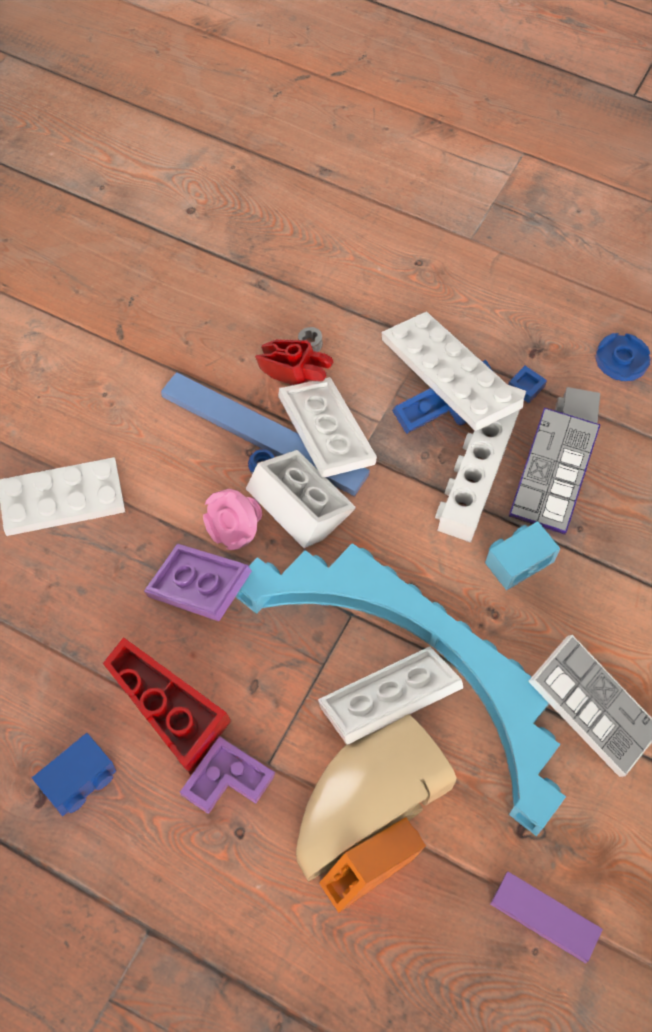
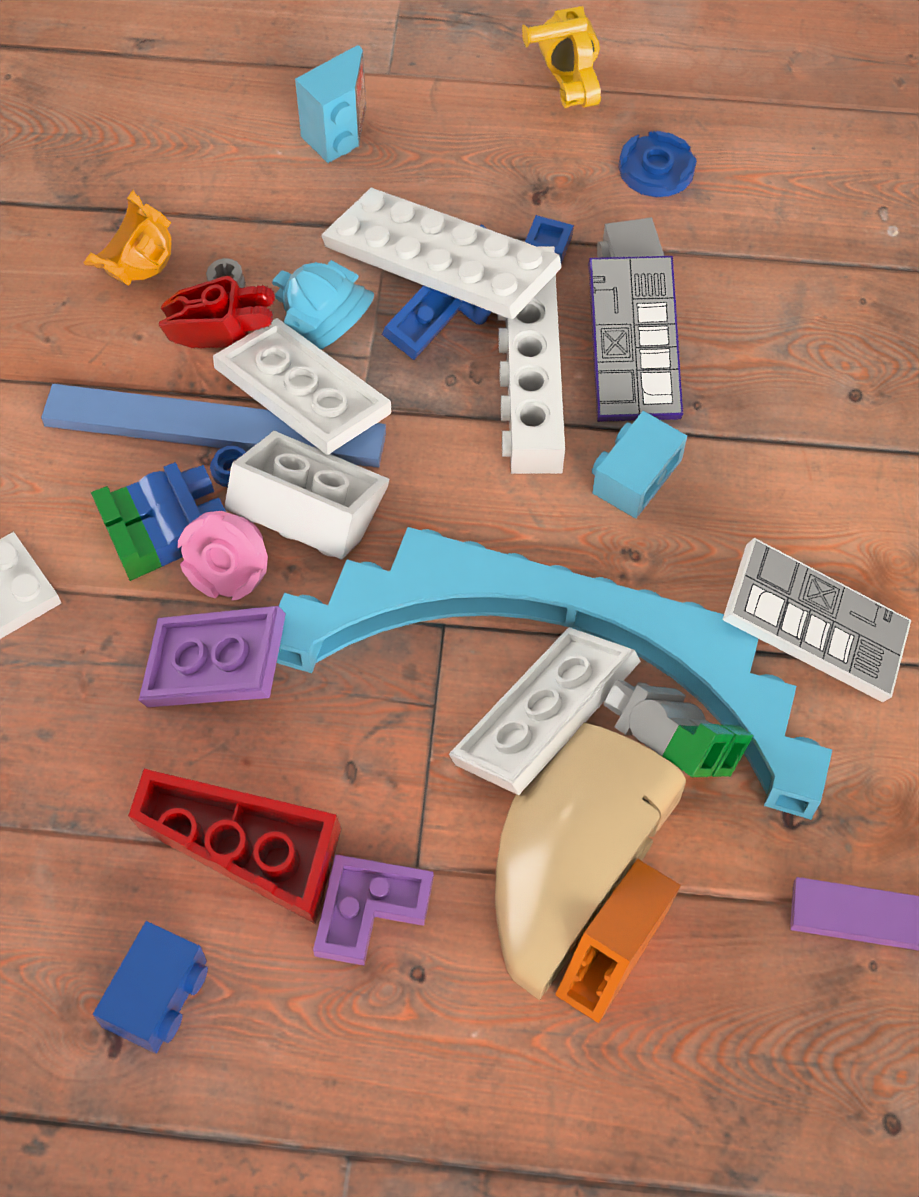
camera: 20 degrees left, 0 degrees up
(200, 475) = (152, 514): none -> blue hips
(264, 303) = (138, 247): none -> light orange helmet
(362, 376) = (321, 301): none -> medium azure helmet
(424, 249) = (333, 104): none -> medium azure slope
(467, 743) = (677, 729): none -> hips
(592, 261) = (569, 52): none -> yellow piece

